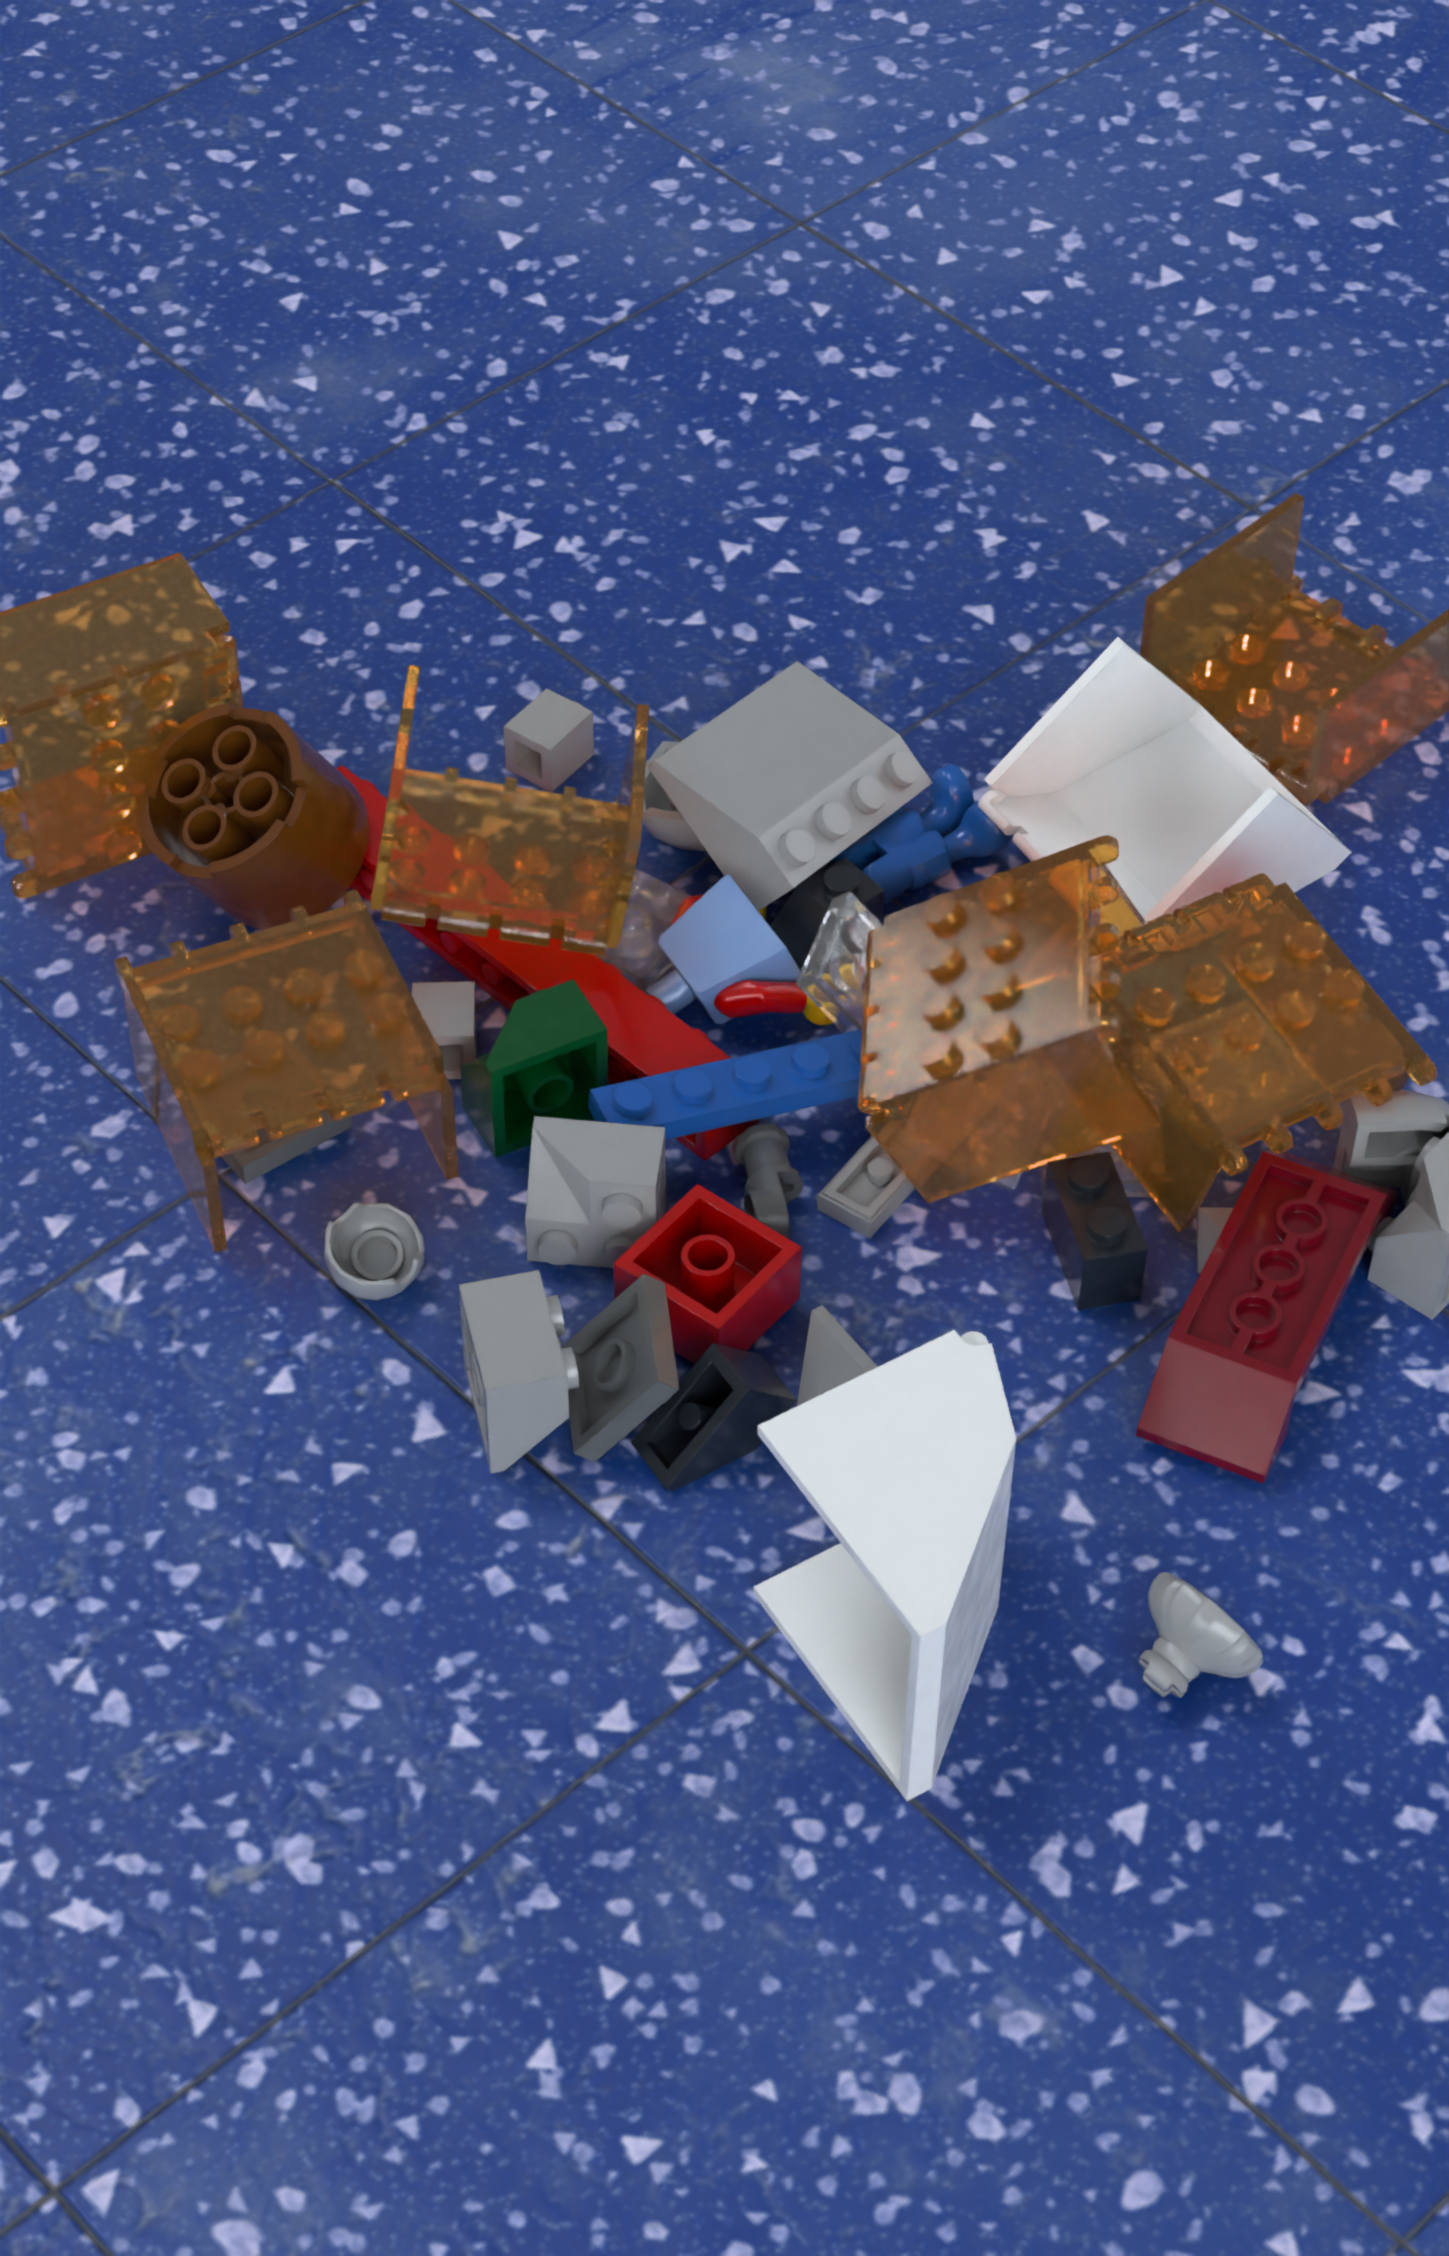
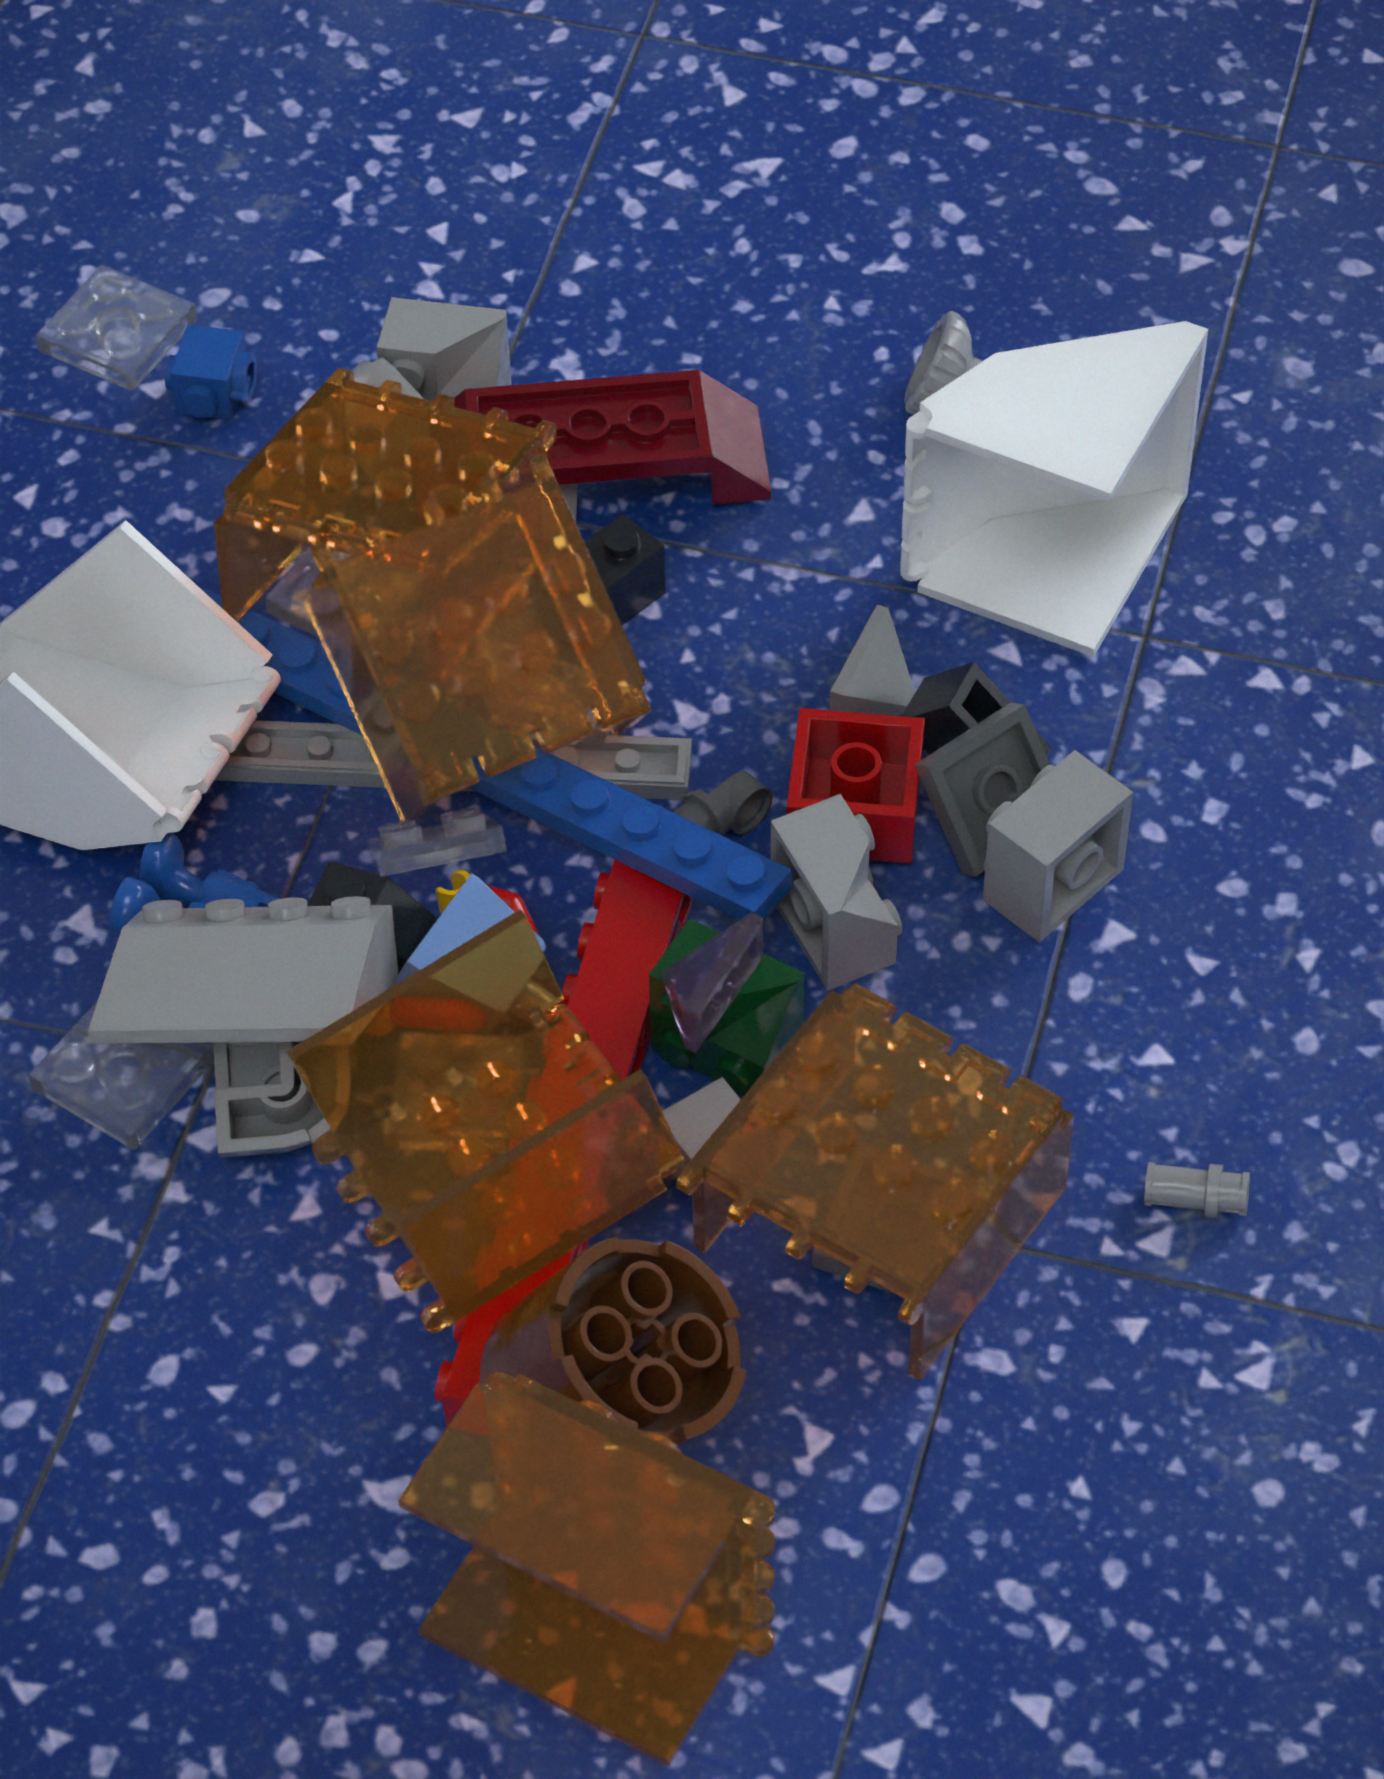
camera: 120 degrees left, 5 degrees up
(113, 1317) = (1197, 1189): none -> light grey pin
(373, 1250) = (1006, 1031): light grey hair -> none
(516, 985) = (711, 977): none -> clear purple slope
(549, 740) = (256, 1274): light grey brick -> none

